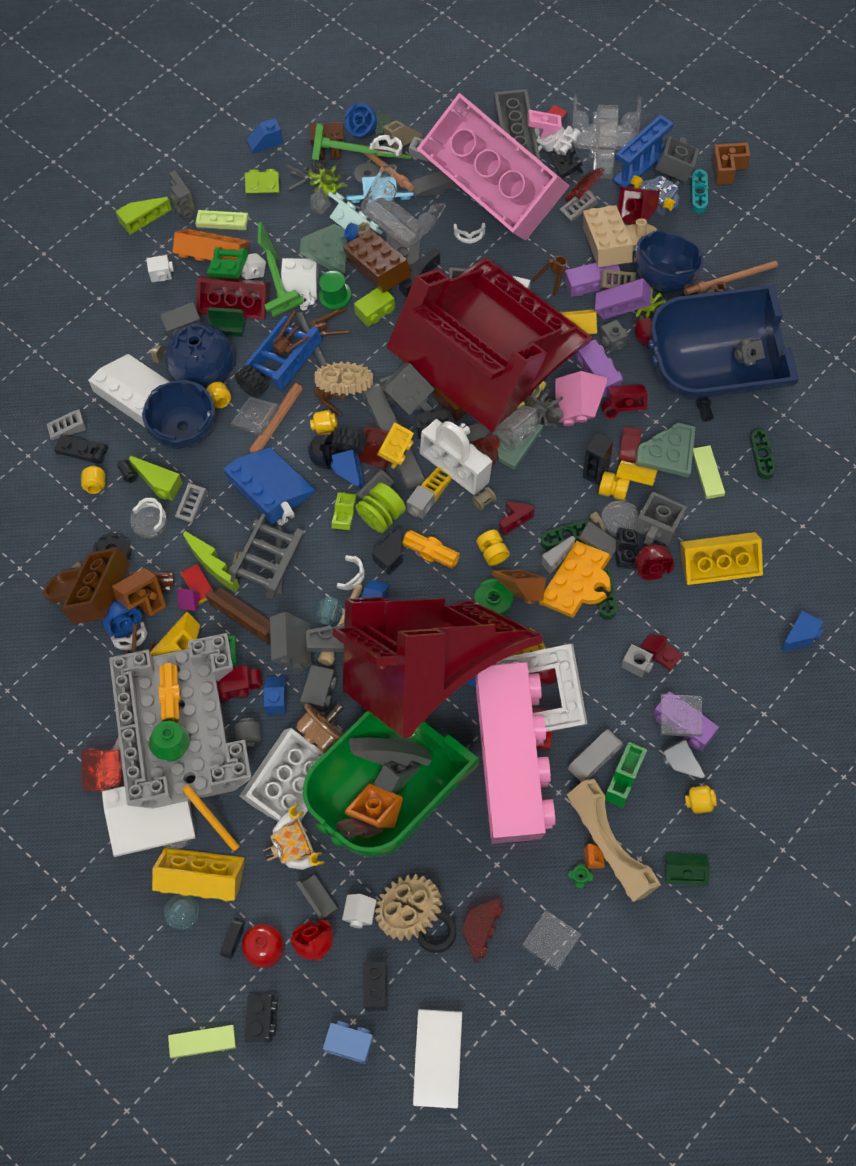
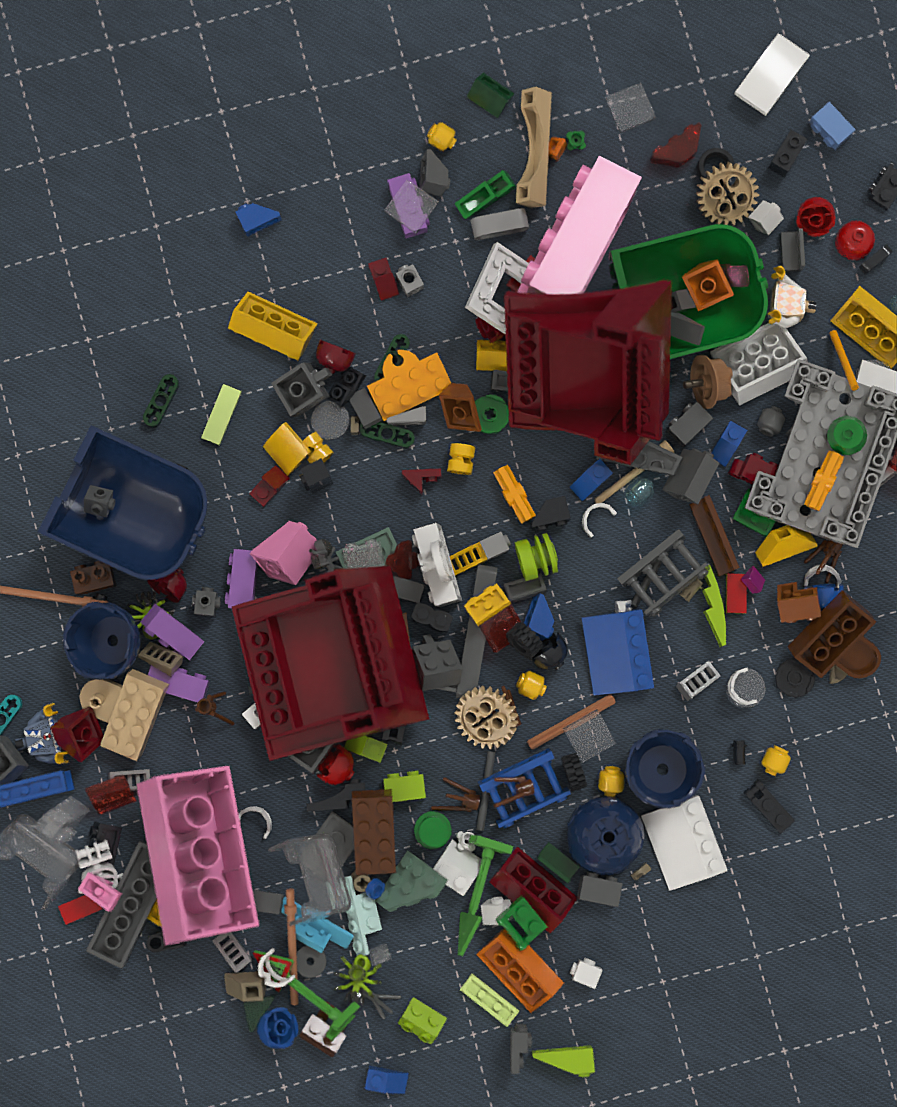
camera: 155 degrees left, 20 degrees up
(64, 420) = (755, 837): light grey slope -> none
(160, 480) = (715, 720): lime slope -> none
(165, 579) = (763, 614): reddish brown plant -> none
(344, 511) = (566, 583): lime slope -> none
(484, 498) = (436, 513): dark tan bush -> none
(584, 319) = (223, 645): yellow panel -> none
(624, 399) = (244, 528): dark red hinge -> none
(669, 450) = (241, 454): sand green plate -> none

